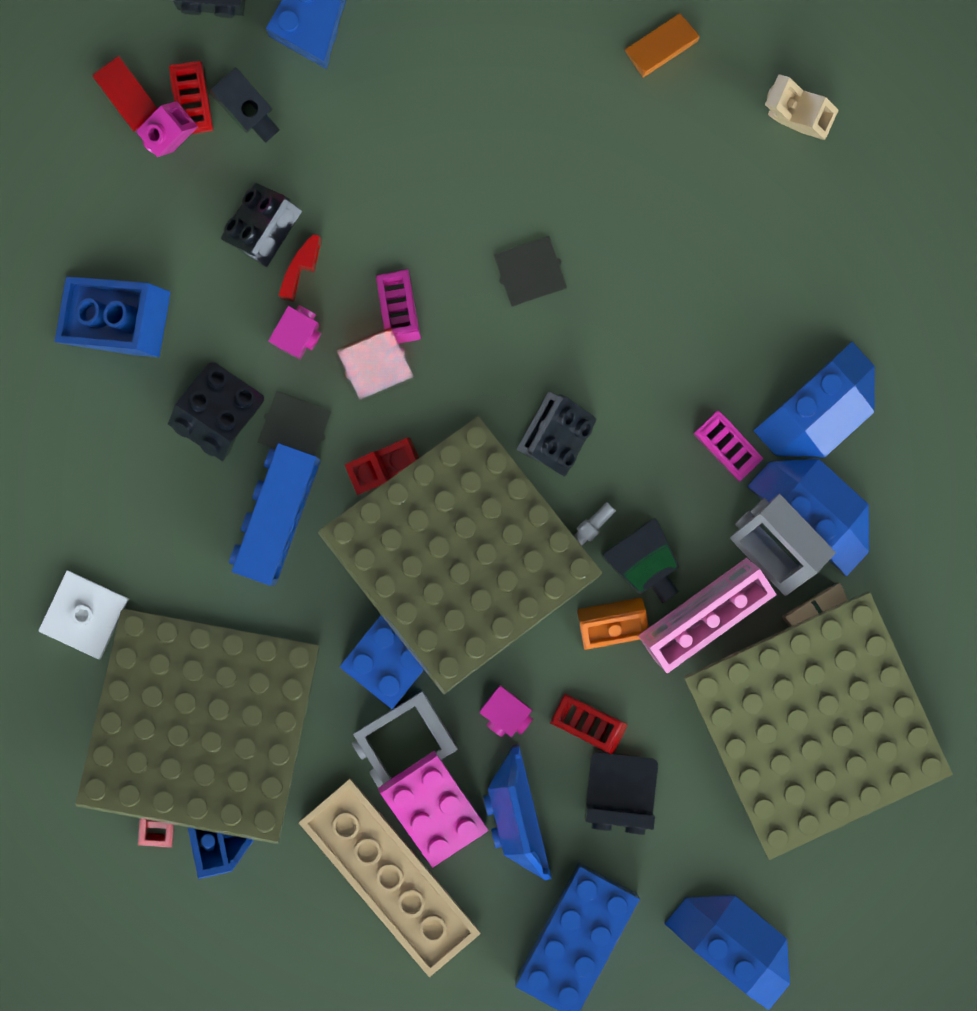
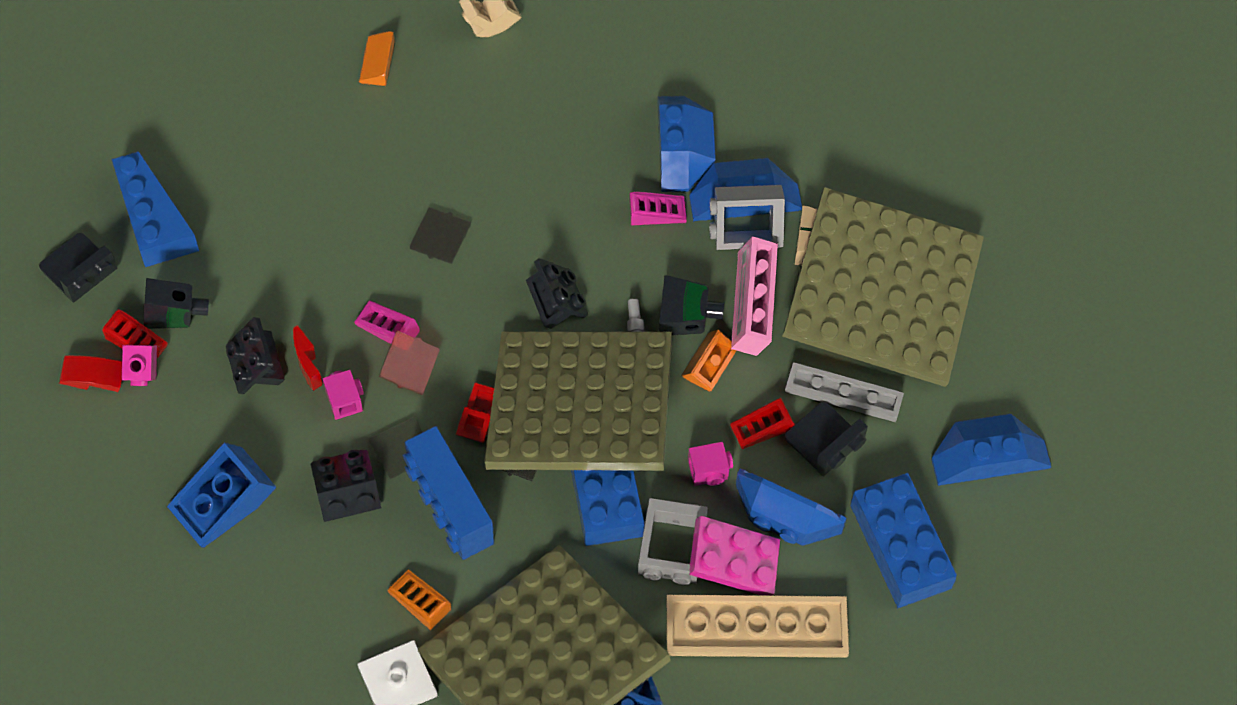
camera: 50 degrees left, 25 degrees down
(155, 582) = (429, 619): none -> orange slope
(682, 771) = (844, 392): none -> light grey plate

